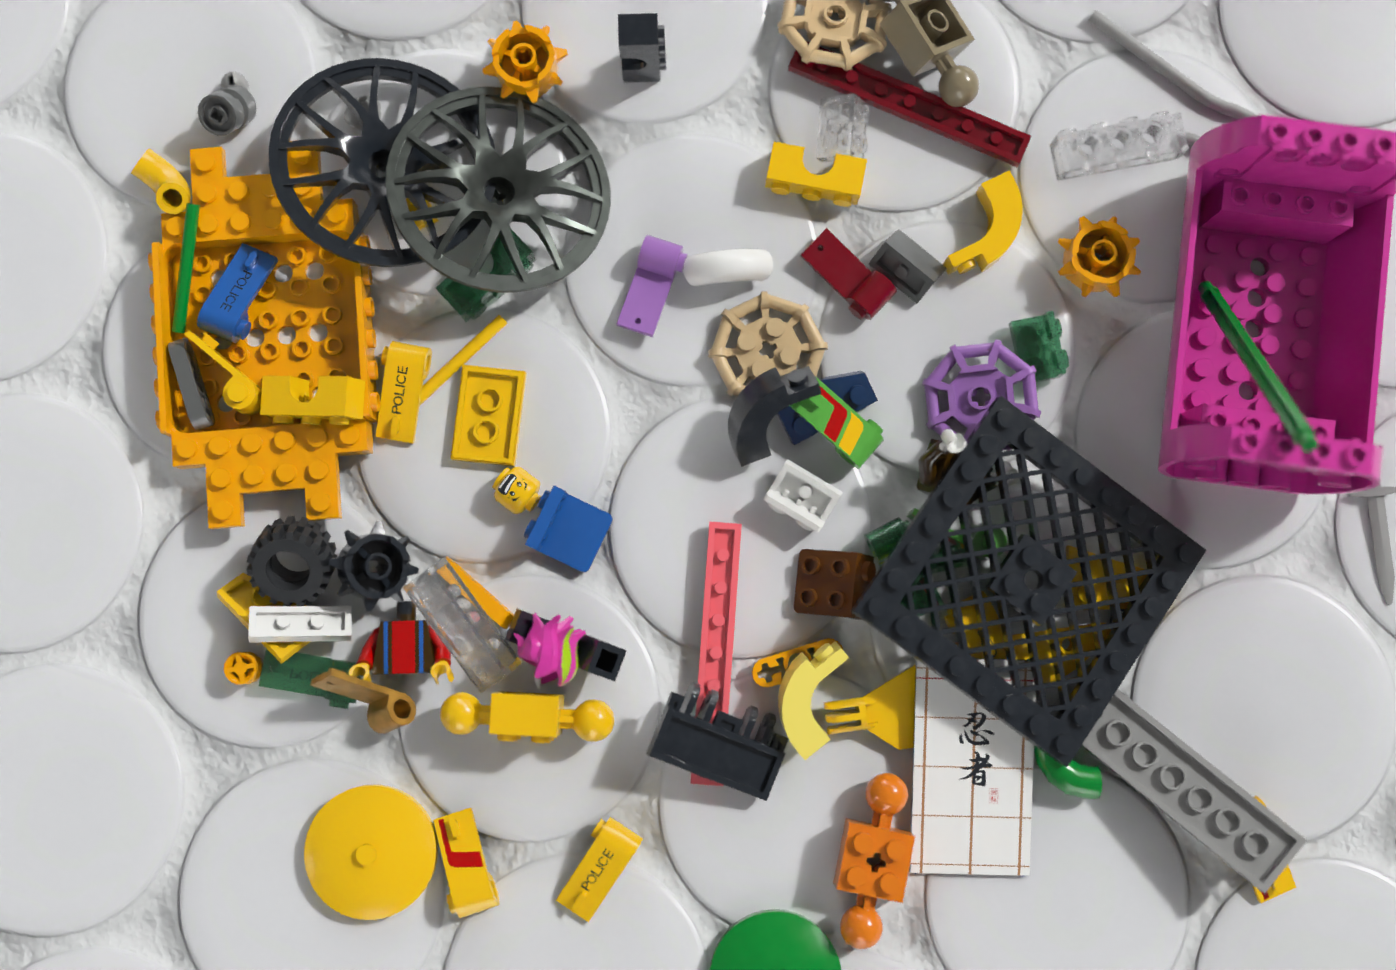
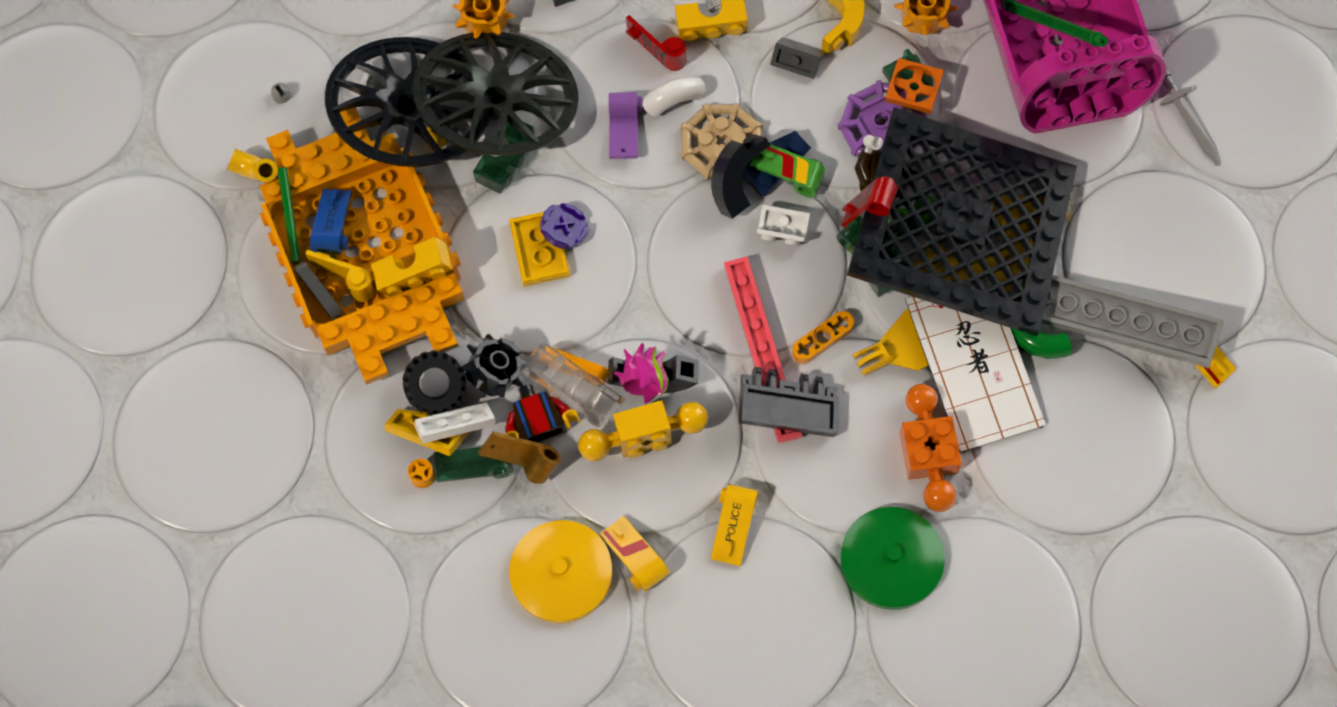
camera: 15 degrees left, 15 degrees down
(226, 110) = (283, 105): dark grey wheel -> none
(401, 390) = (471, 250): yellow door -> none
(462, 357) = (503, 220): yellow bar -> none
(517, 490) = (578, 287): yellow head -> none
(527, 399) = (563, 226): none -> tile
(568, 529) = (624, 301): blue bracket -> none
(747, 204) = (669, 53): none -> red door
(796, 696) = (830, 355): light yellow arch -> none
(831, 582) = (825, 274): reddish brown bracket -> none
(848, 276) = (759, 77): dark red door -> none
(921, 520) = (875, 198): none -> red door
(1054, 349) = (909, 102): none -> orange piece

